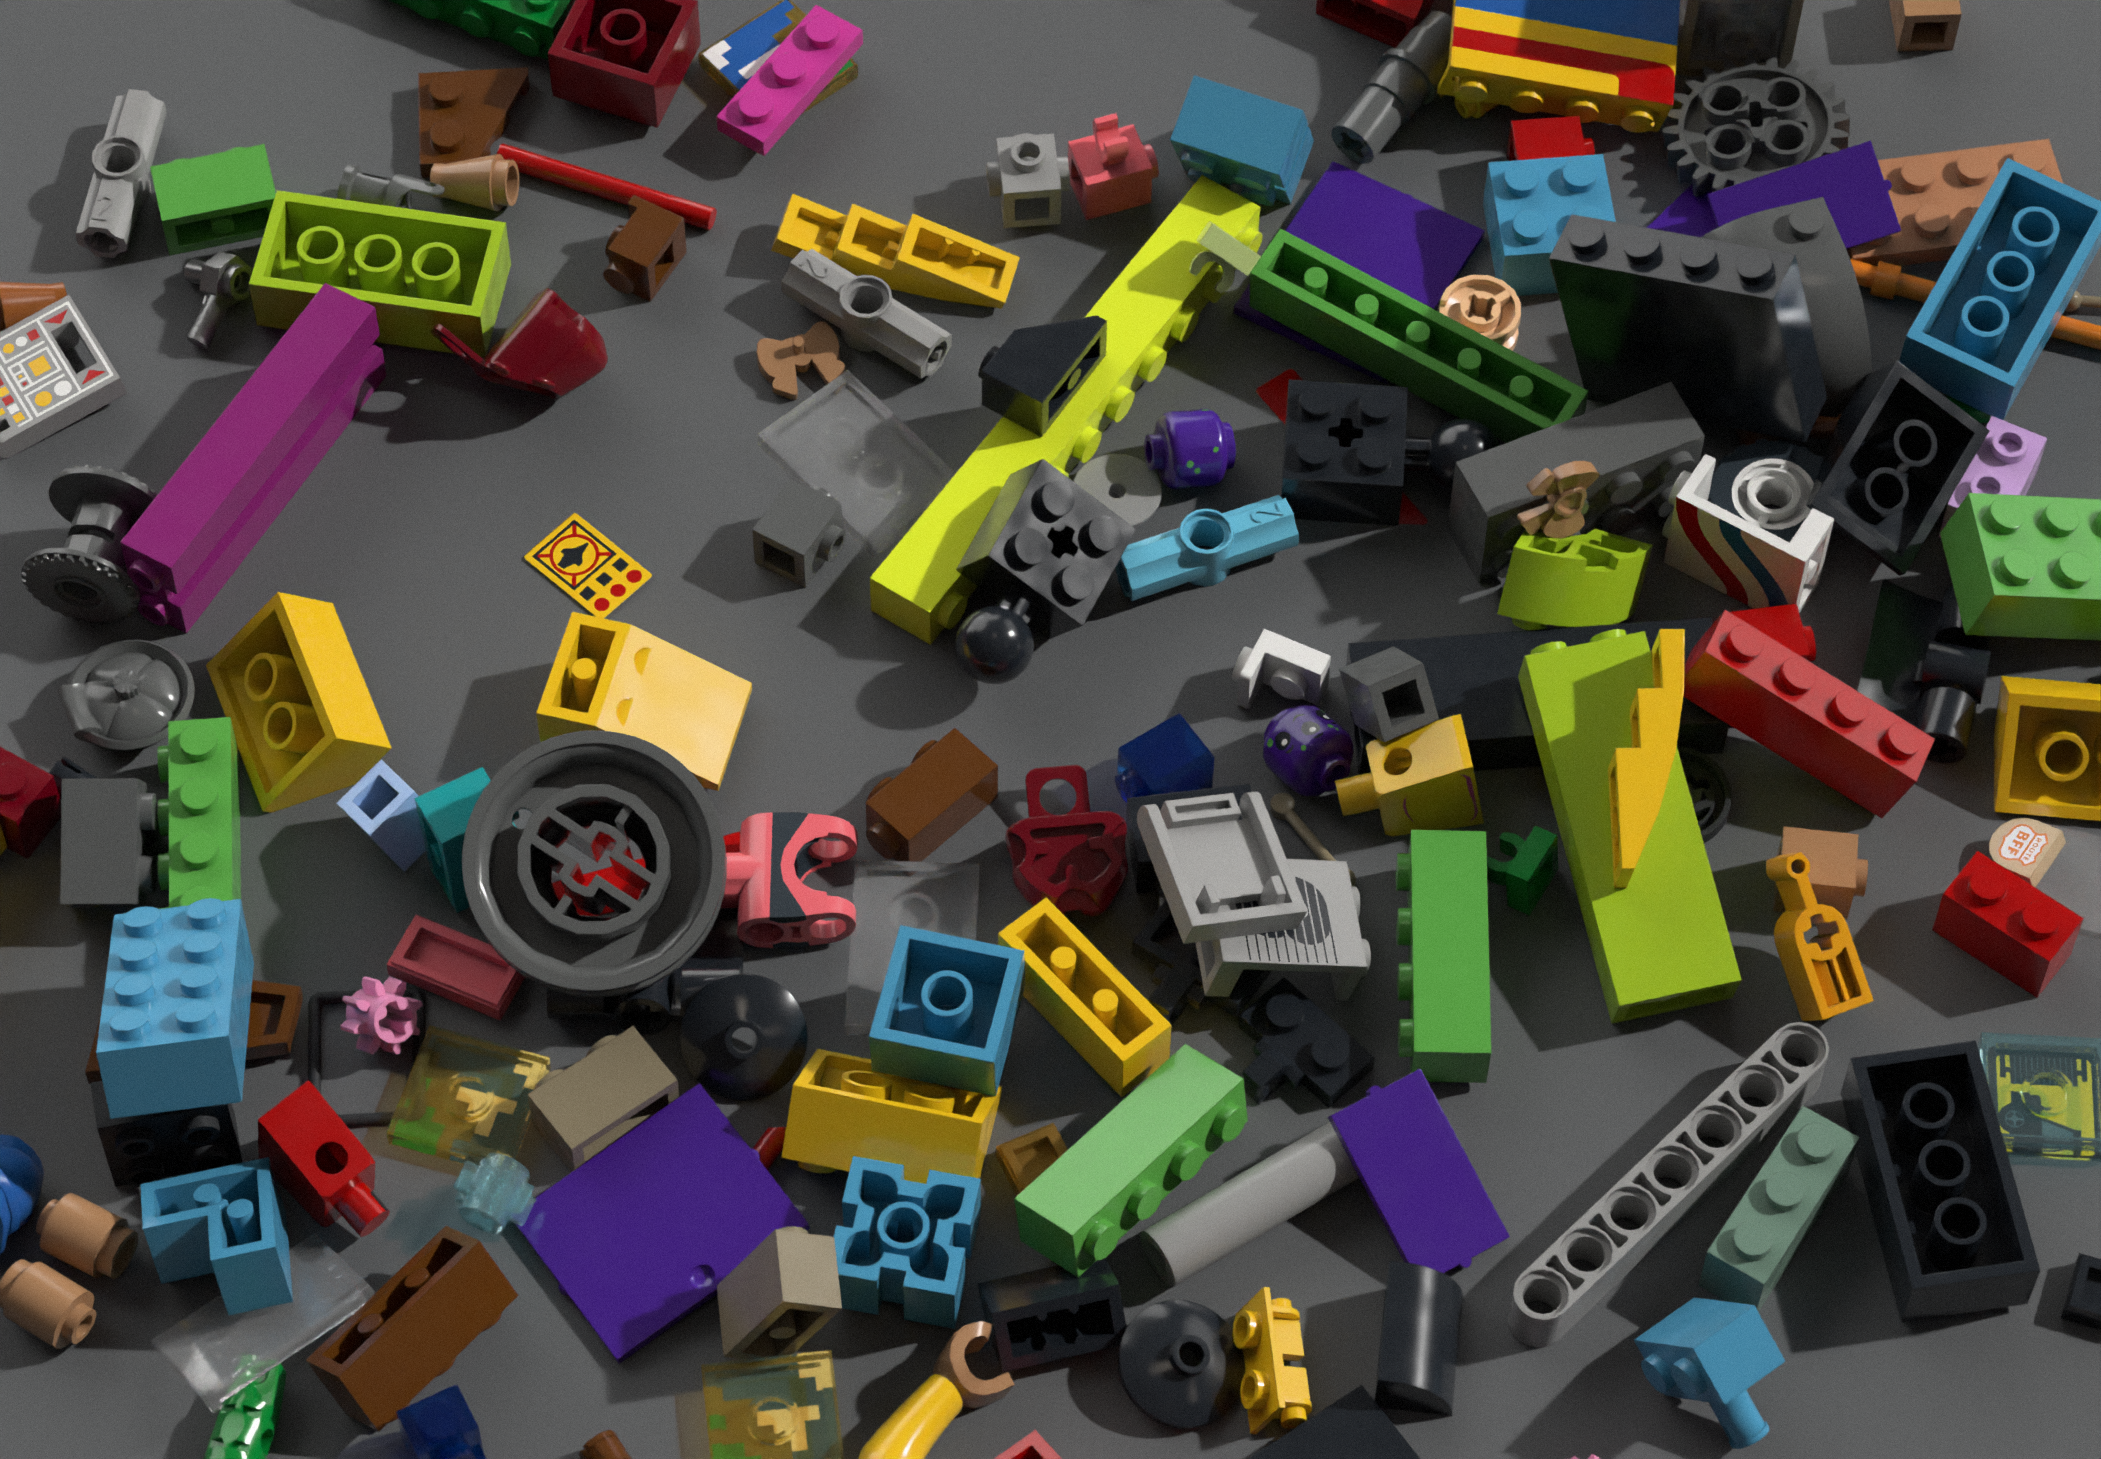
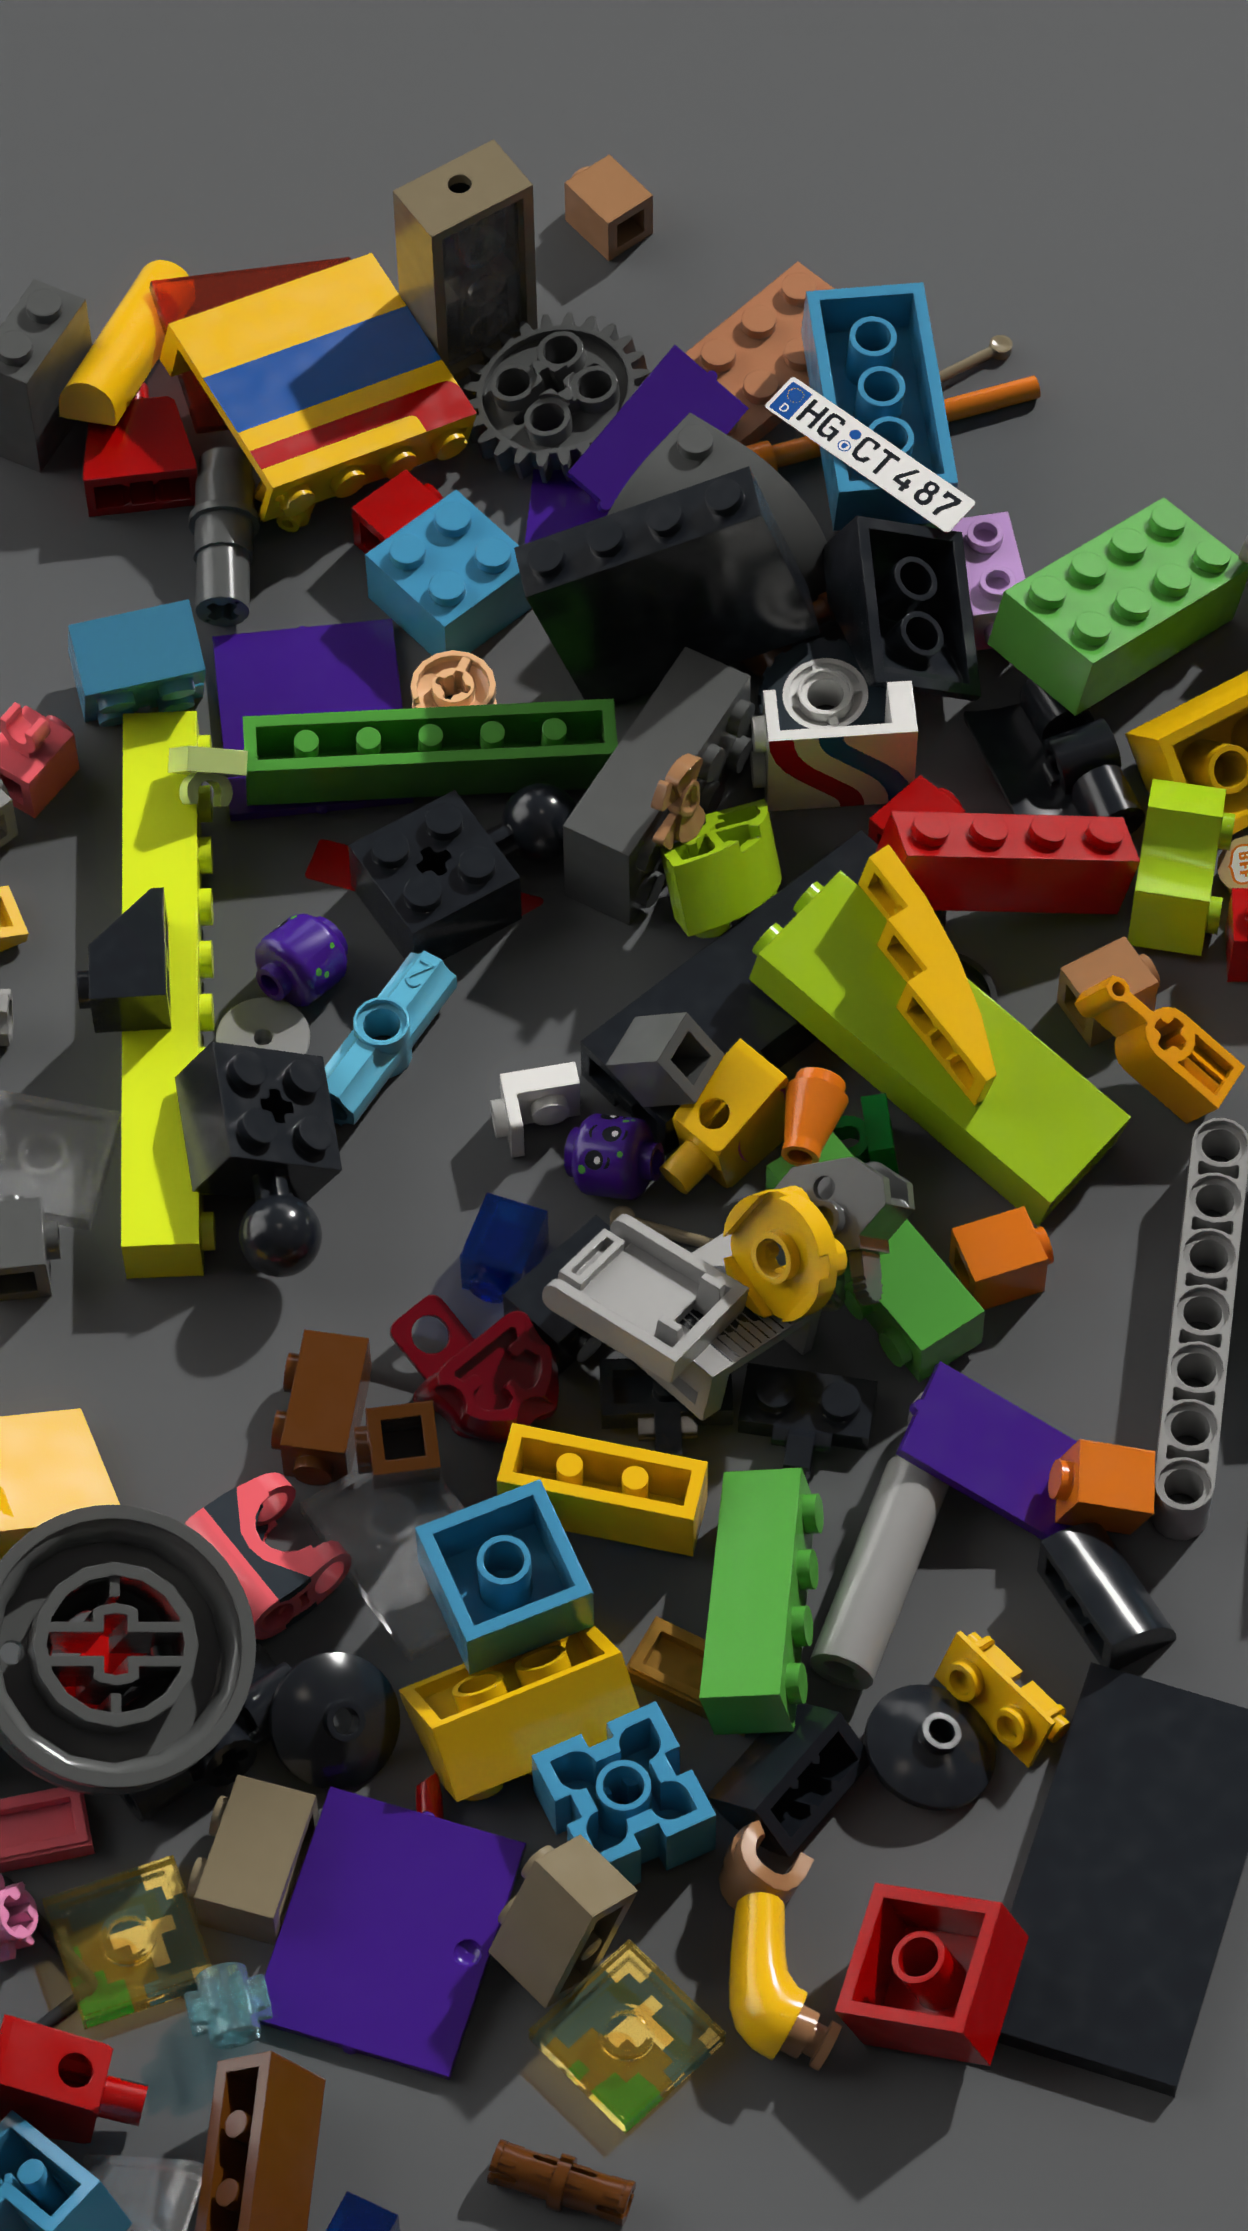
camera: 35 degrees left, 0 degrees up
(945, 857) = (399, 1445): none -> reddish brown brick
(1351, 899) = (809, 1247): none -> yellow plate
(1420, 908) = (863, 1210): none -> dark grey hinge
(1476, 808) = (812, 1111): none -> orange cone
(1479, 1253) = (1103, 1486): none -> orange brick
(1550, 1026) = (1001, 1257): none -> orange brick
(1956, 321) = (870, 454): none -> white sticker
(1956, 809) = (1178, 866): none -> lime brick

